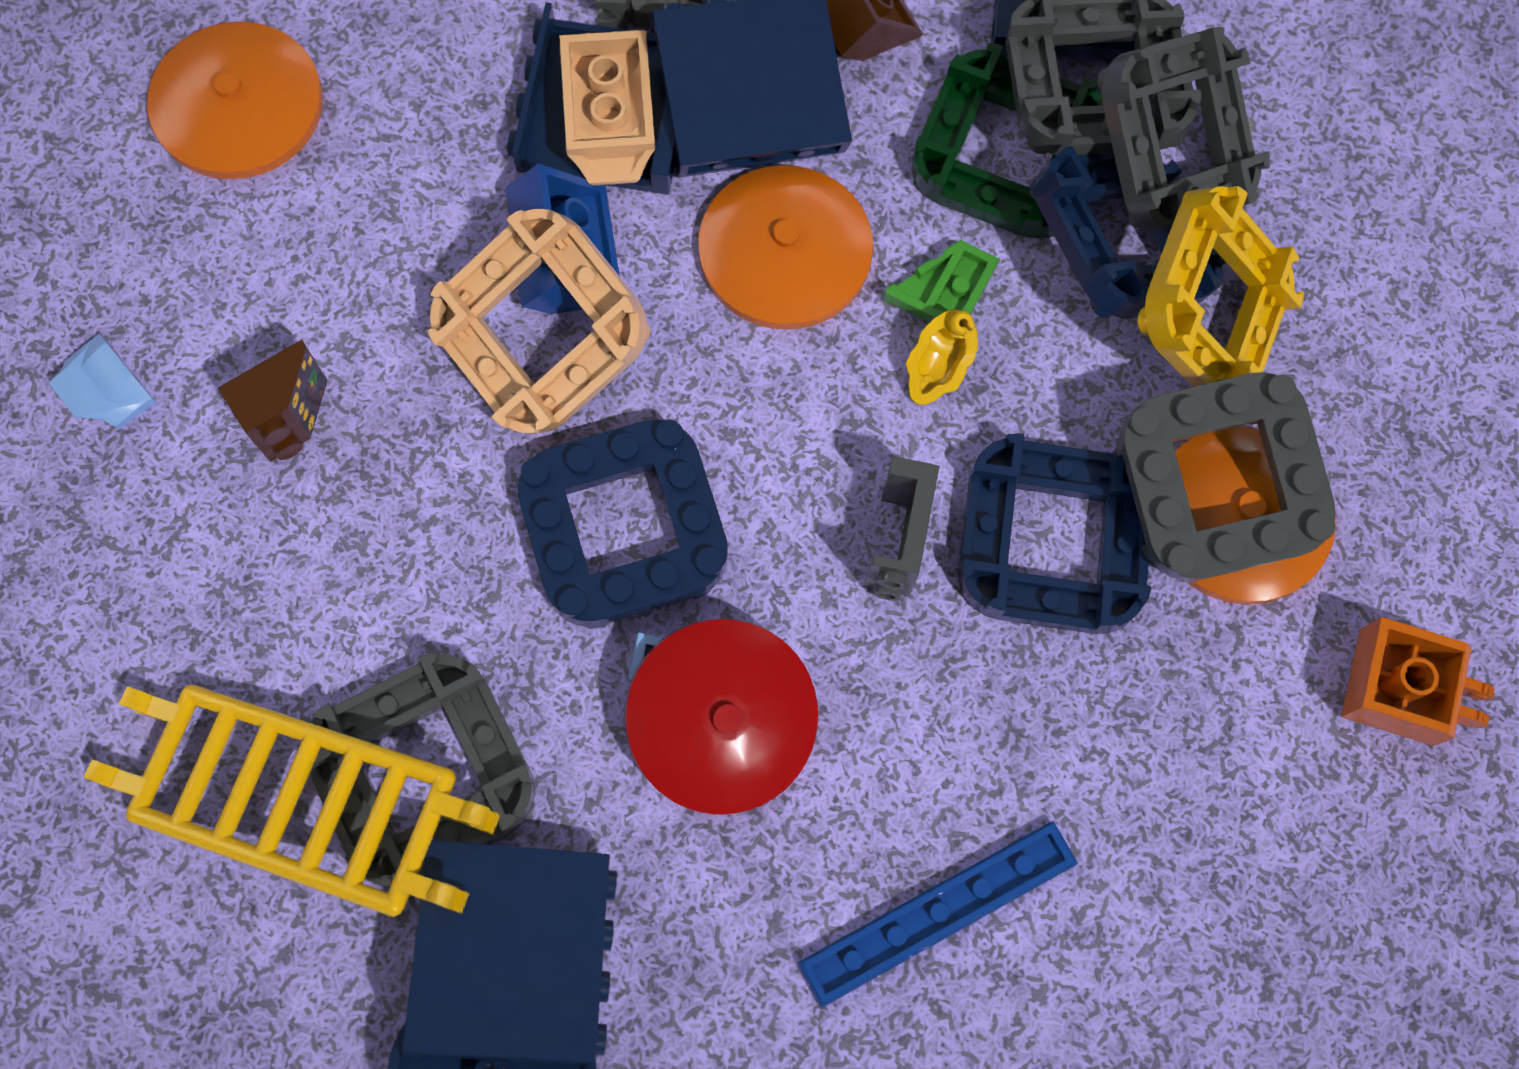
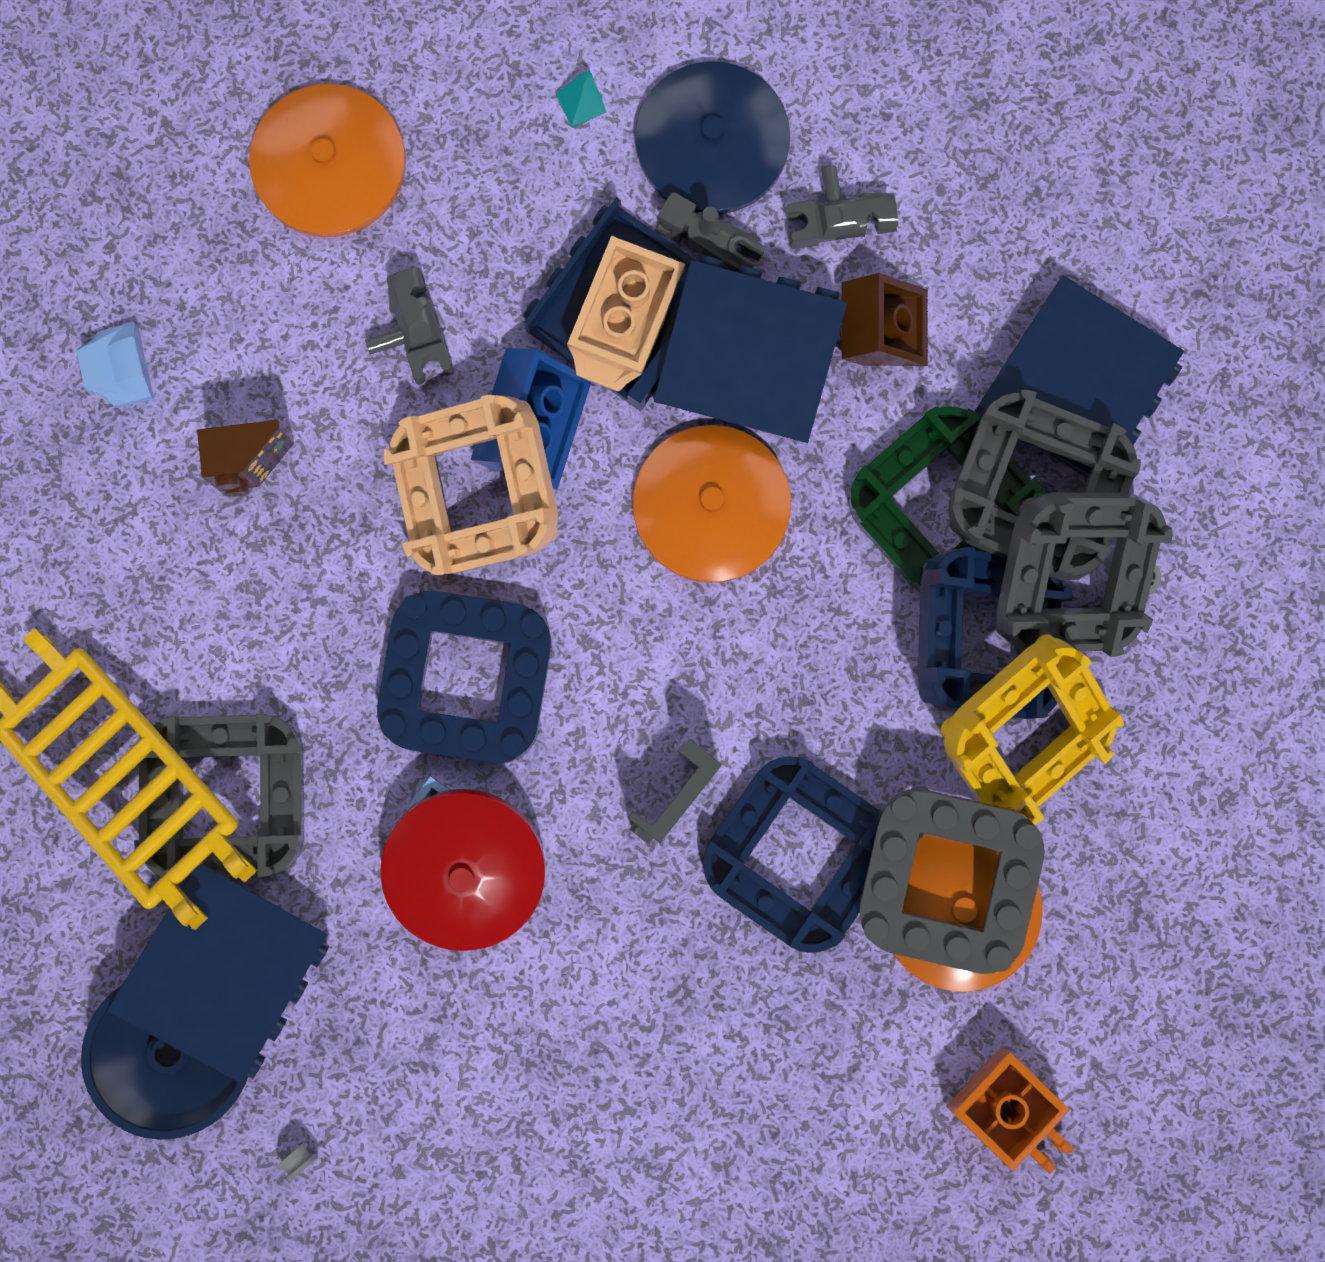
camera: 30 degrees right, 10 degrees up
(401, 210) = (416, 325): none -> dark grey piece
(937, 914) = (553, 1096): blue tile -> none
(941, 356) = (785, 663): yellow arm -> none
(945, 283) = (824, 604): bright green wing -> none

